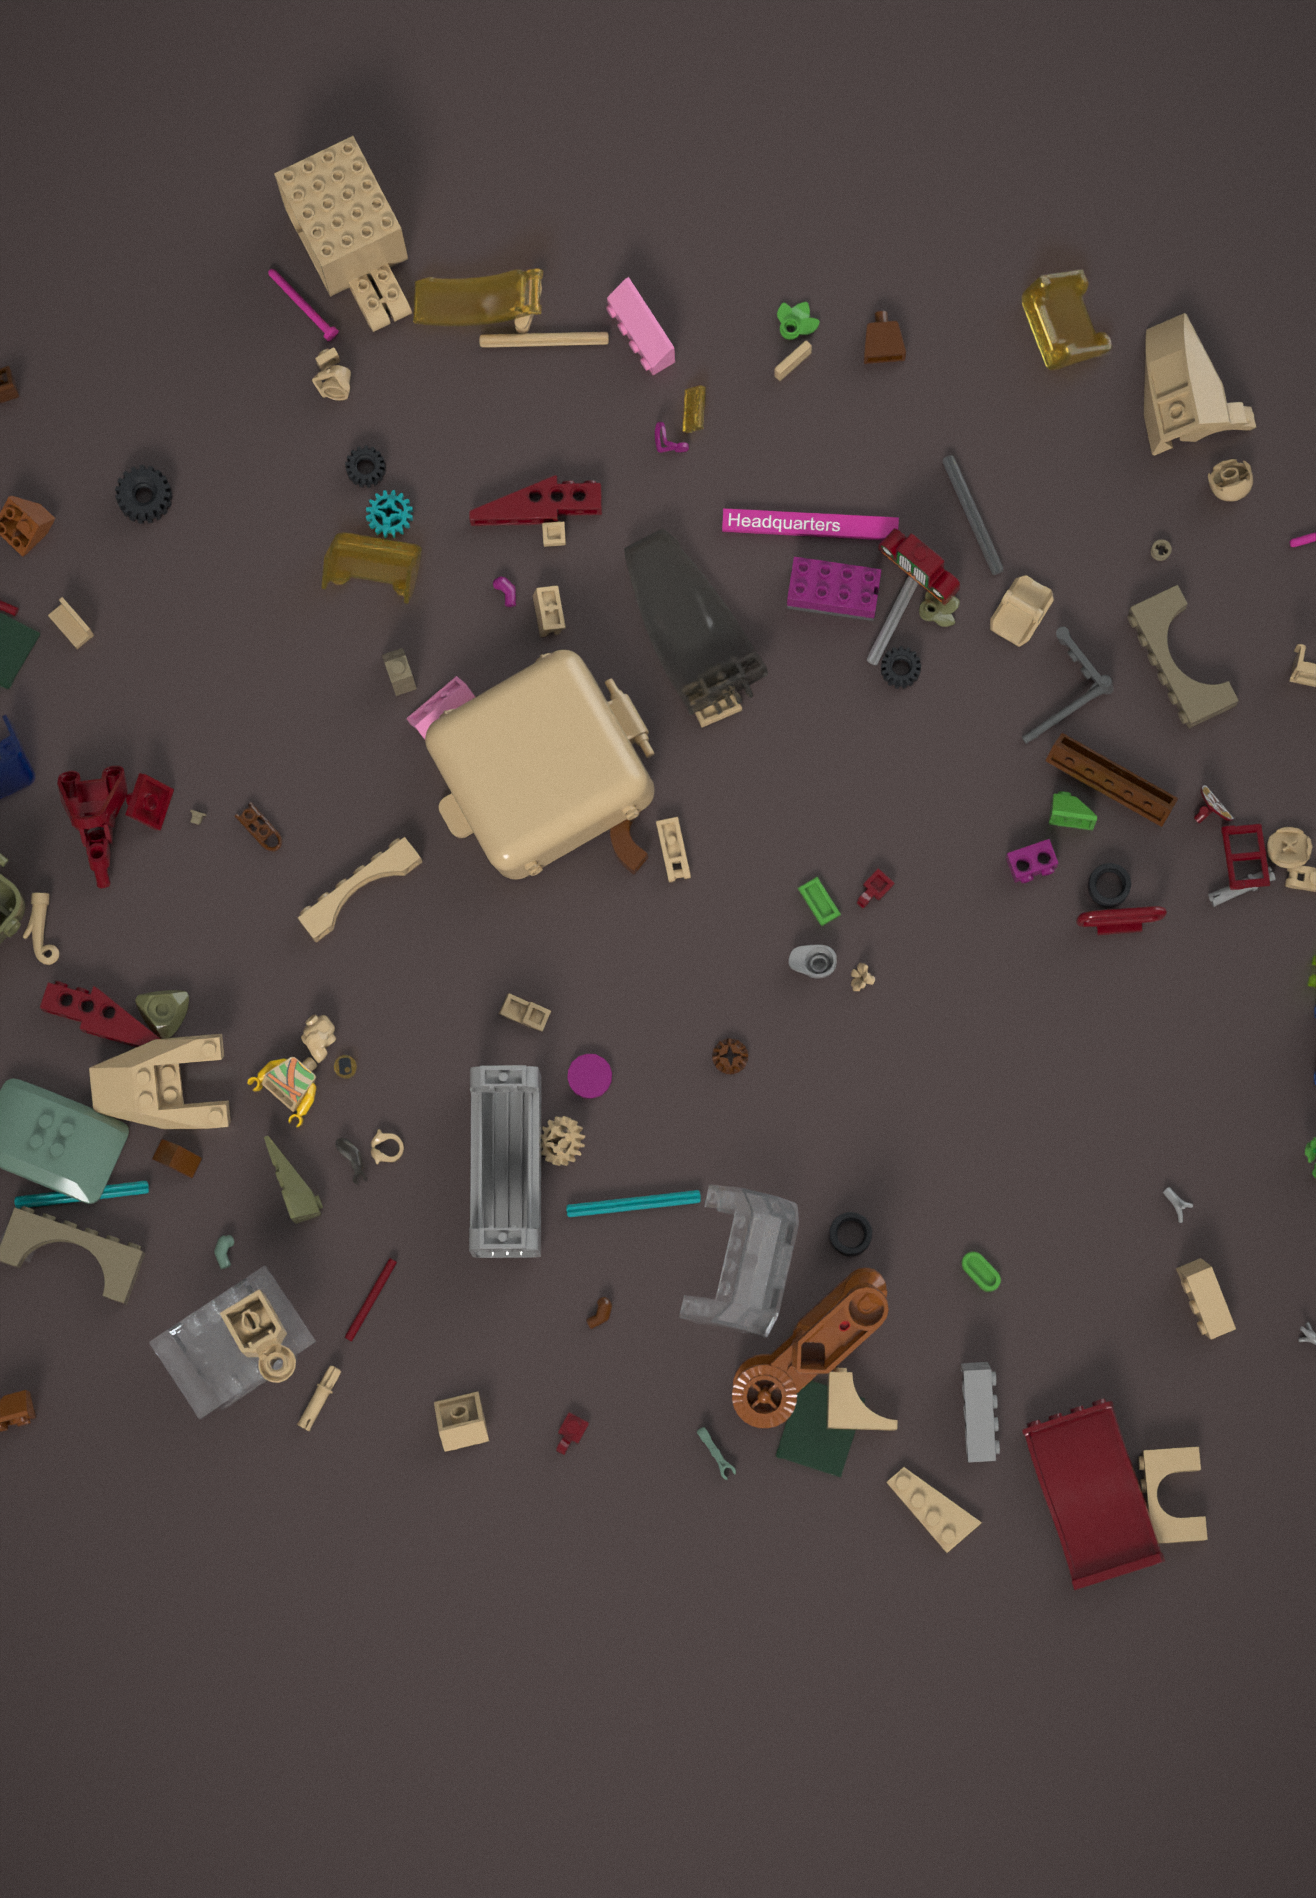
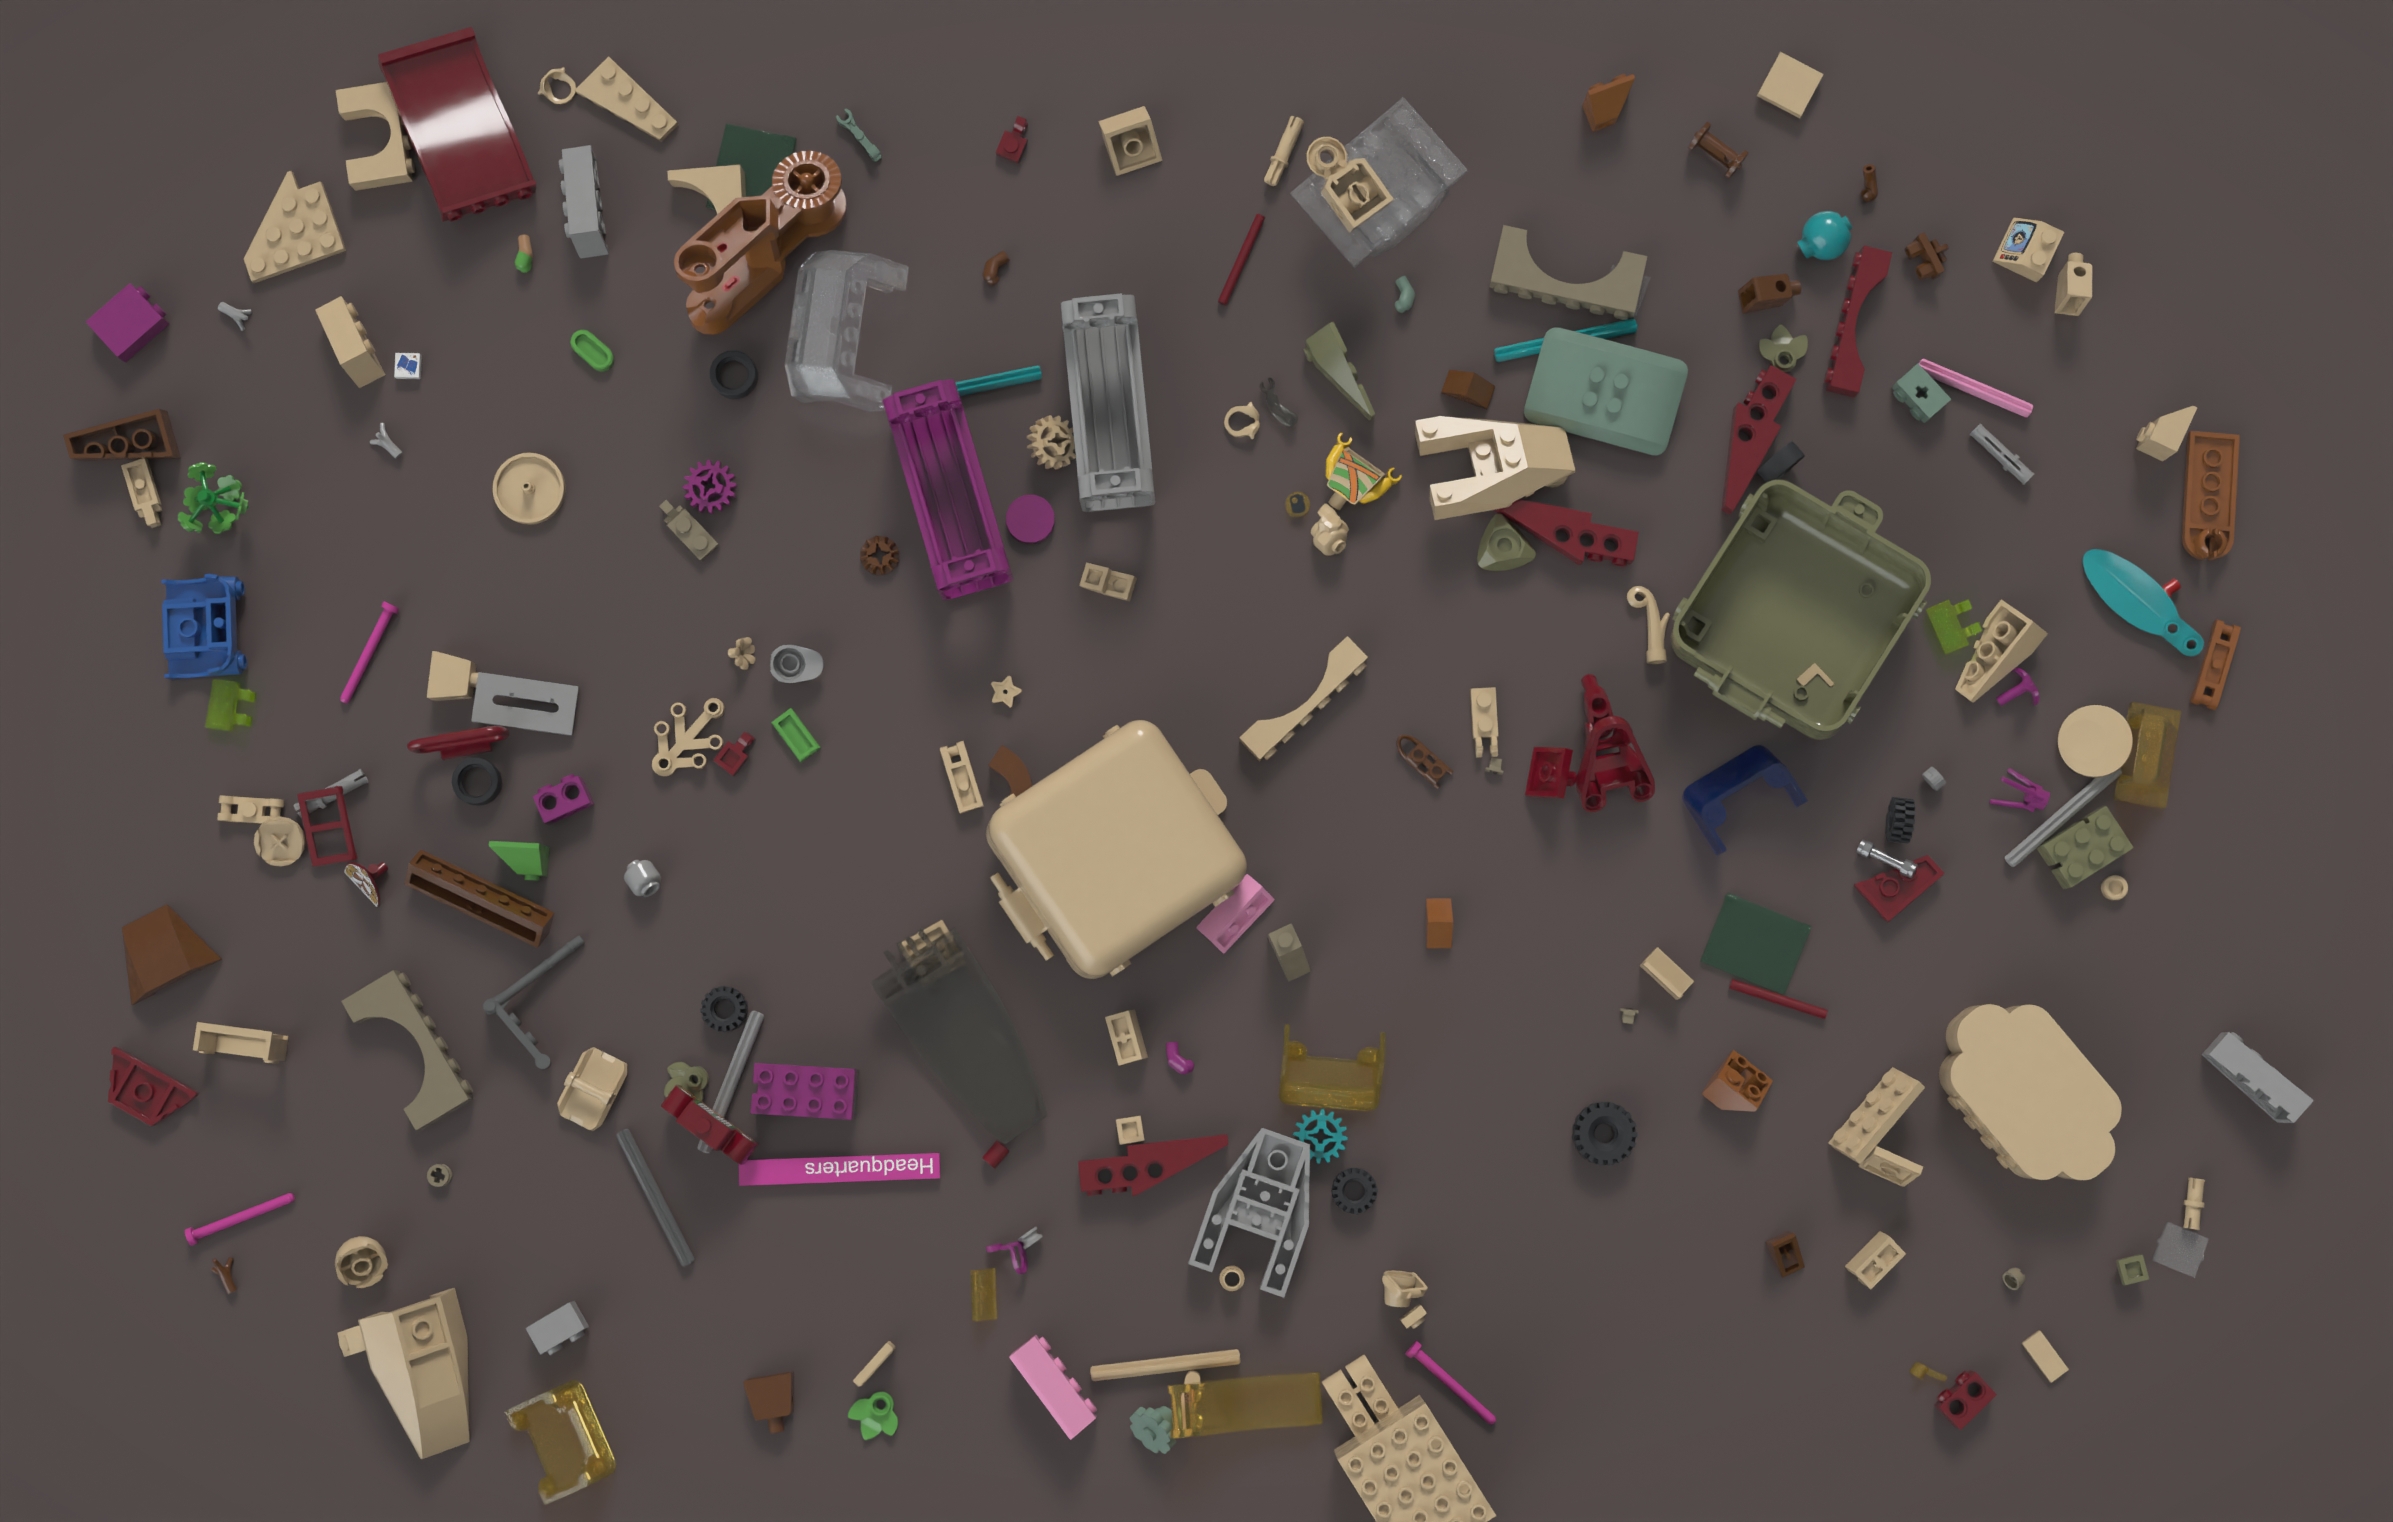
camera: 170 degrees right, 5 degrees up
(109, 593) = (1628, 1015): none -> dark tan piece
(201, 858) = (1484, 718): none -> tan hinge
(263, 686) = (1439, 923): none -> dark orange slope
(443, 464) = (1266, 1196): none -> light grey wedge
(482, 410) = (1231, 1269): none -> tan piece
(557, 287) = (1153, 1428): none -> sand green plant
(625, 928) = (1007, 698): none -> tan plate
(649, 452) = (1030, 1237): none -> light grey bush
(659, 1096) = (947, 489): none -> magenta piece
(673, 523) = (996, 1154): none -> dark red hinge
(870, 1126) = (706, 496): none -> magenta gear
(902, 1094) = (689, 531): none -> dark tan hinge
(918, 904) = (685, 739): none -> tan plant
(965, 786) = (642, 878): none -> light grey head
(1009, 1528) = (562, 76): none -> tan piece
(1038, 1366) = (524, 254): none -> arm
(1047, 1147) = (529, 488): none -> tan piece
(1063, 411) = (557, 1328): none -> light grey brick
(1089, 965) = (489, 713): none -> light grey piece
(1125, 979) = (451, 677): none -> tan torso
(1153, 1273) = (408, 365): none -> white tile
(1181, 1047) = (368, 651): none -> dark pink bar
(1254, 1411) = (294, 231): none -> tan wing

